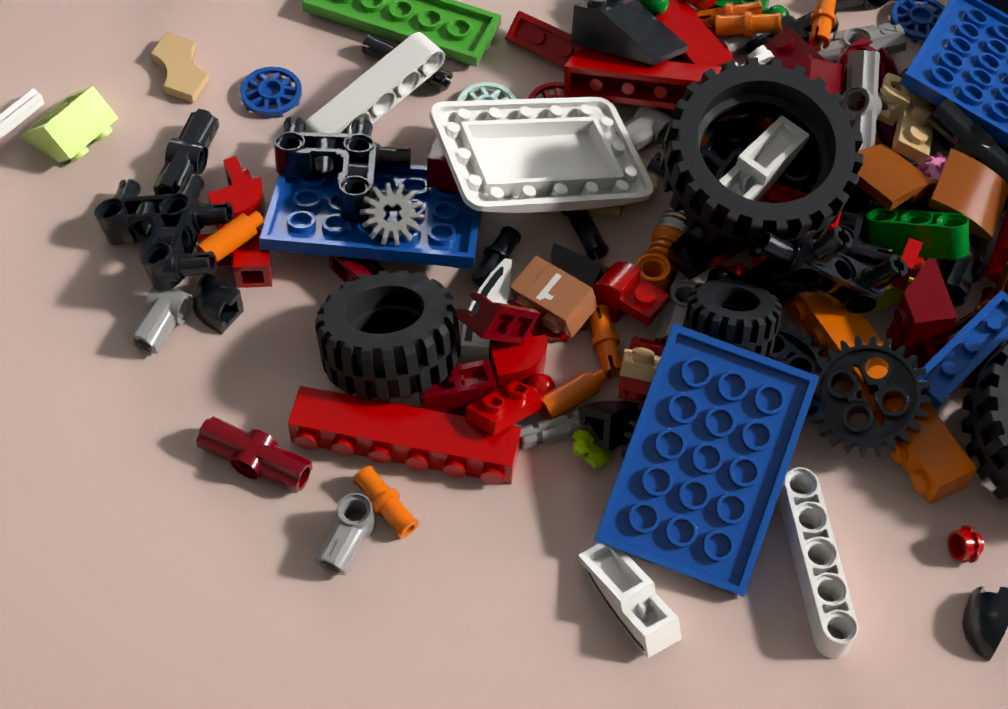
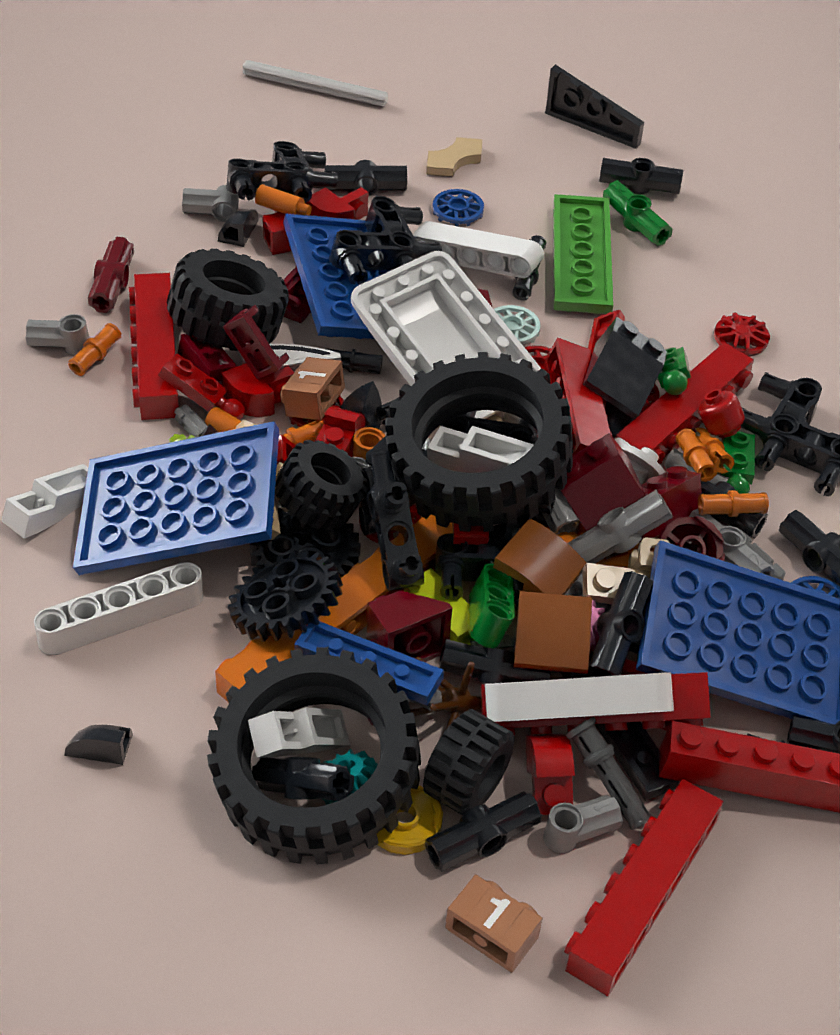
camera: 70 degrees right, 10 degrees down
(72, 126) = (361, 116): yellowish green slope -> none
(392, 228) = (340, 274): light grey gear -> none
(913, 262) = (453, 594): red plate -> none
(965, 544) = (174, 714): red plate -> none

